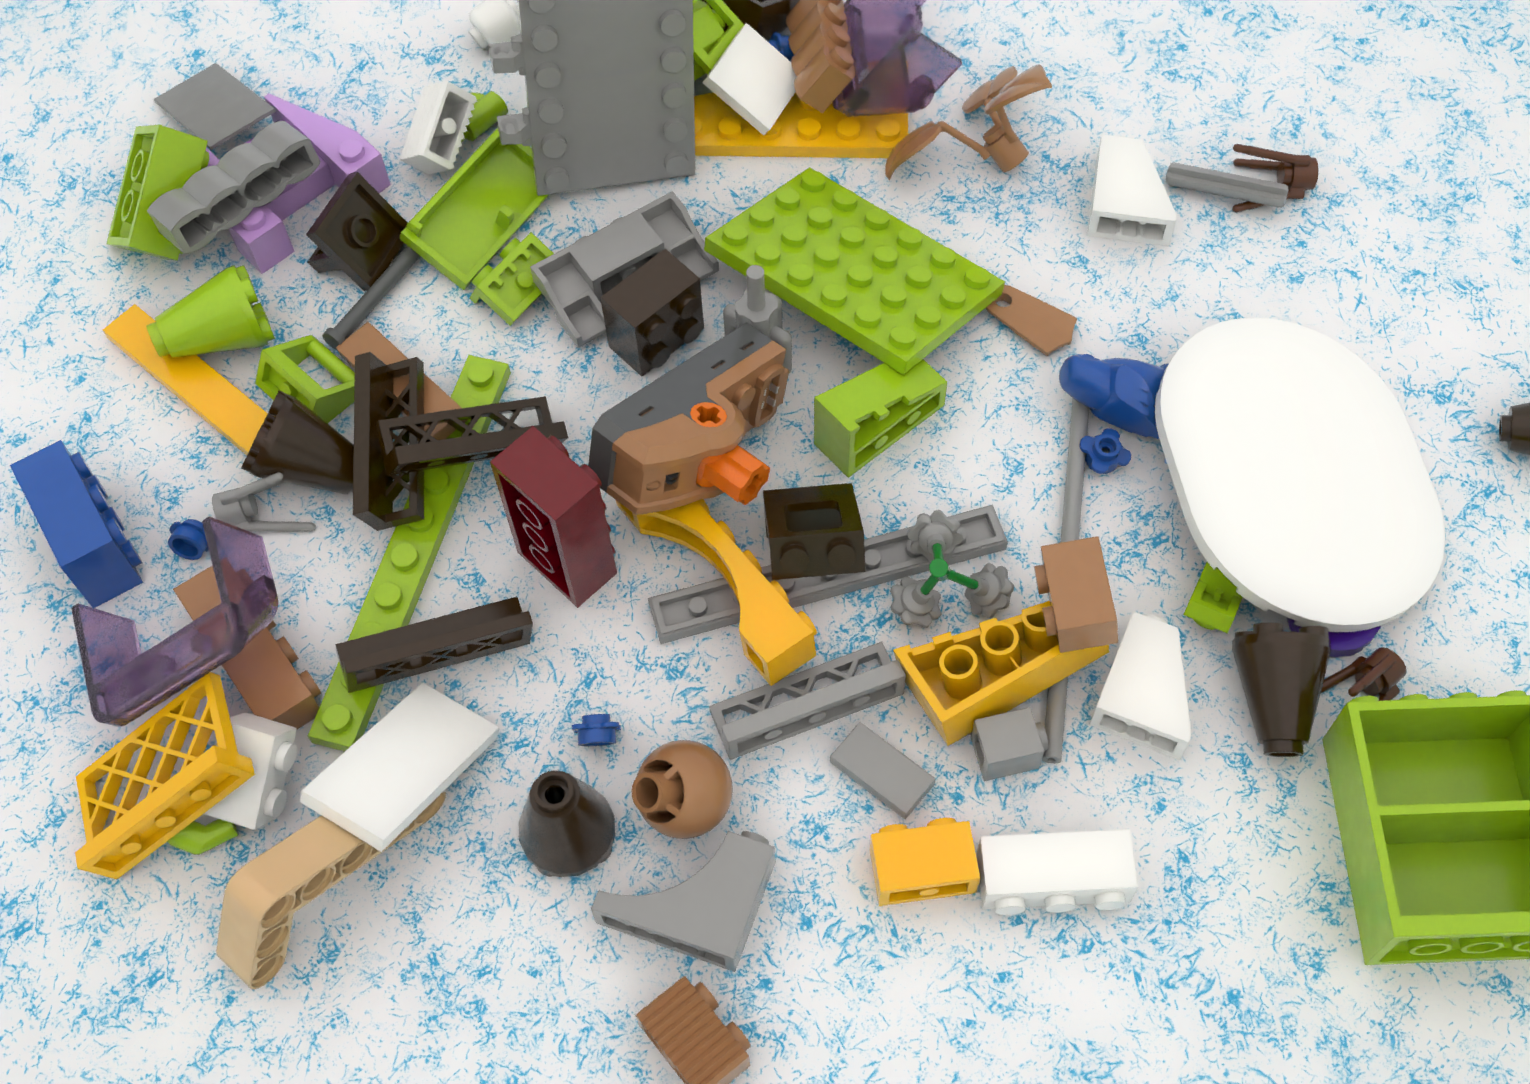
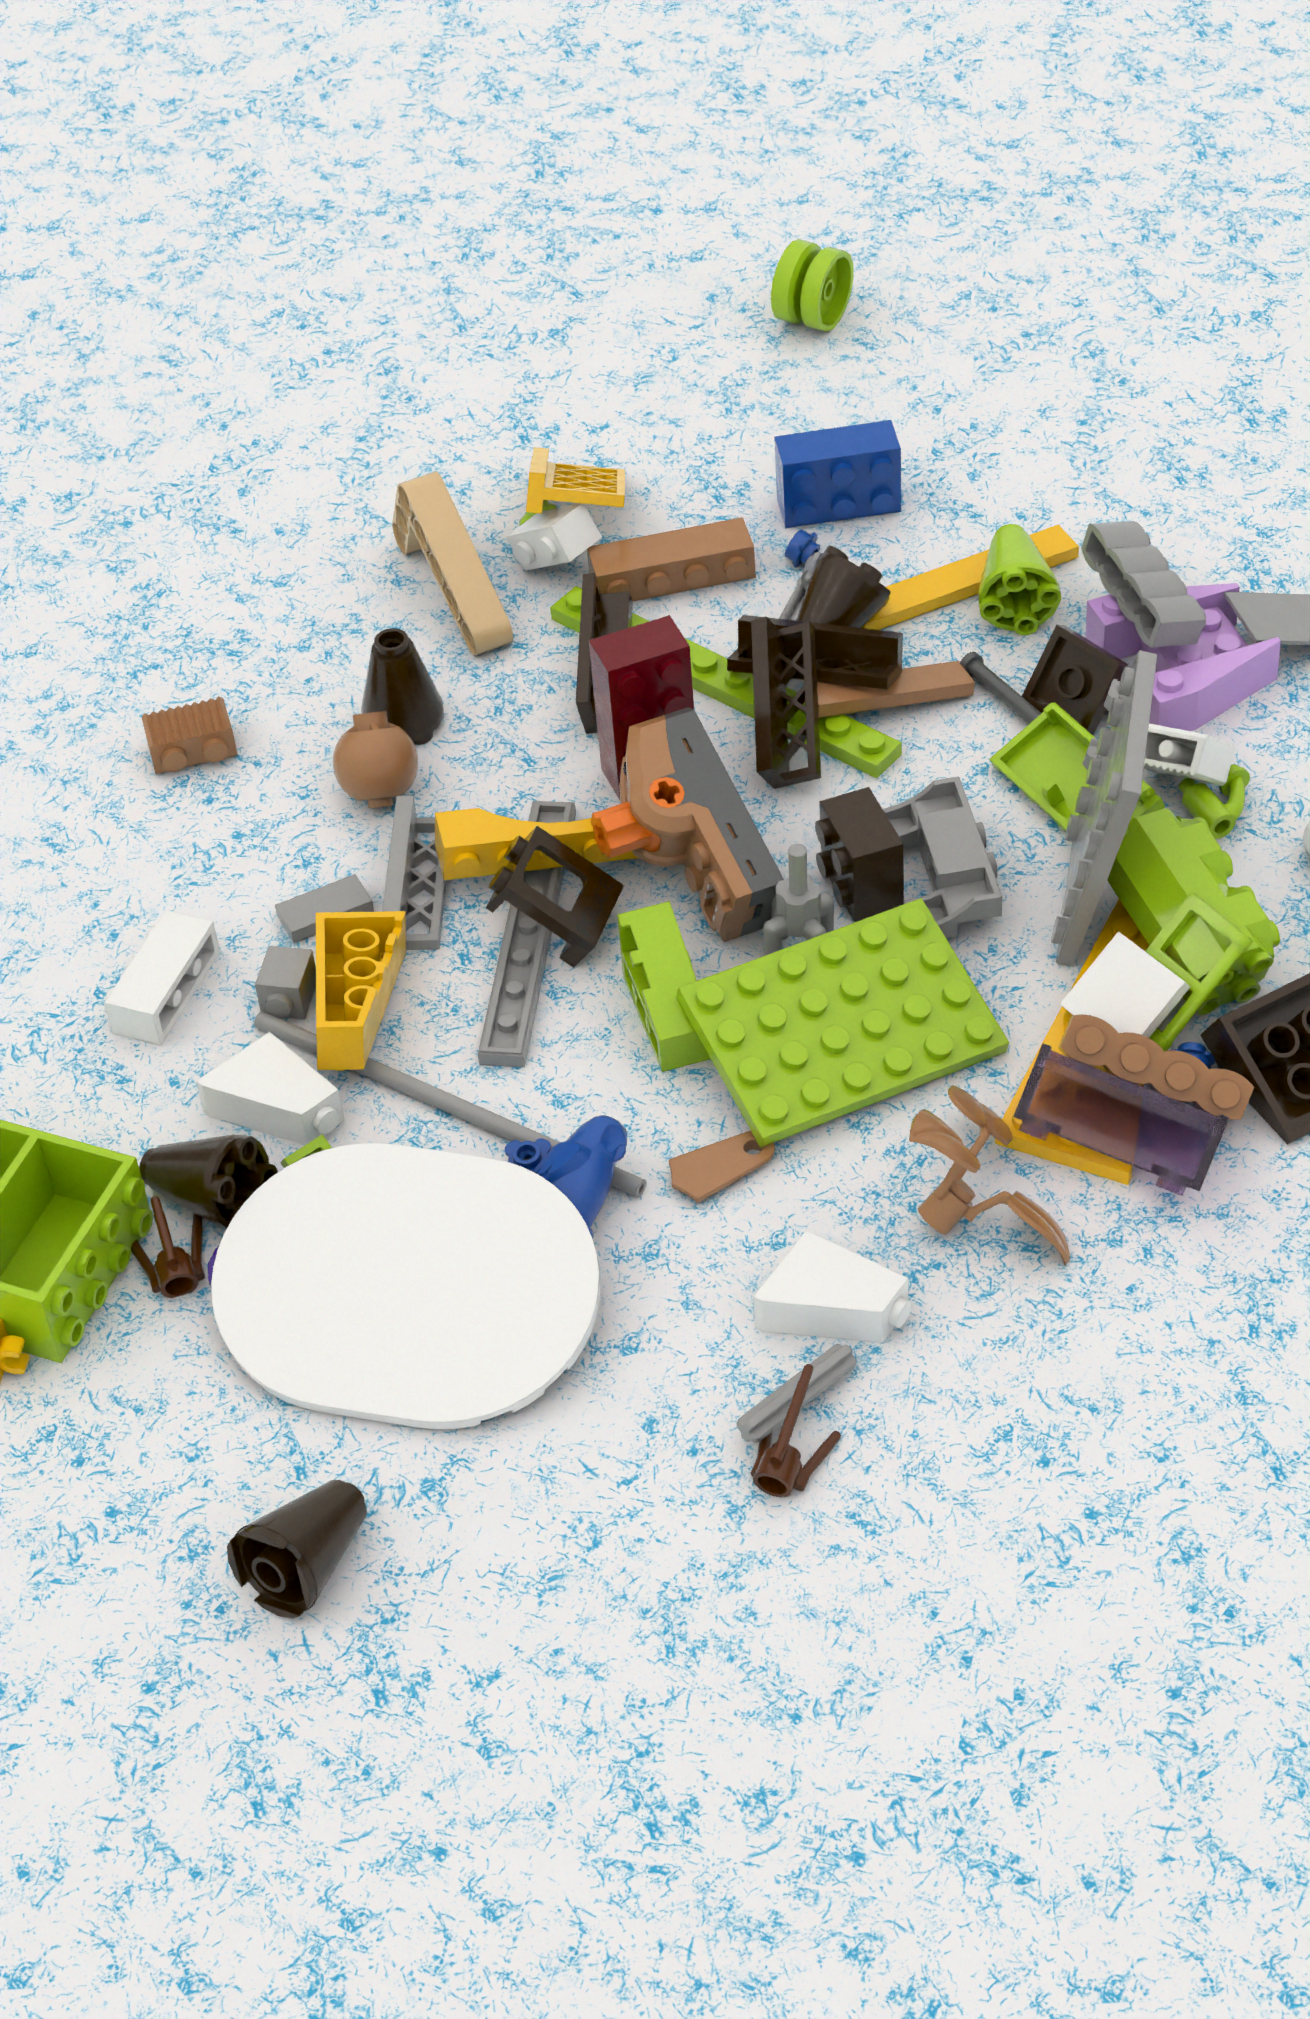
camera: 115 degrees right, 15 degrees down
(128, 683) = (685, 496): clear purple windscreen -> none
(156, 164) = (1203, 548): lime slope -> none
(280, 371) = (935, 619): lime tile -> none
(399, 766) = (501, 611): white tile -> none
(510, 285) = (985, 794): lime bracket -> none
(596, 730) = (470, 741): blue plate -> none
(706, 913) = (275, 767): light grey arch -> none
(924, 861) = (229, 895): yellow brick -> none
(935, 539) = (455, 969): light grey plant -> none
(1078, 595) = (348, 1002): medium nougat brick -> none

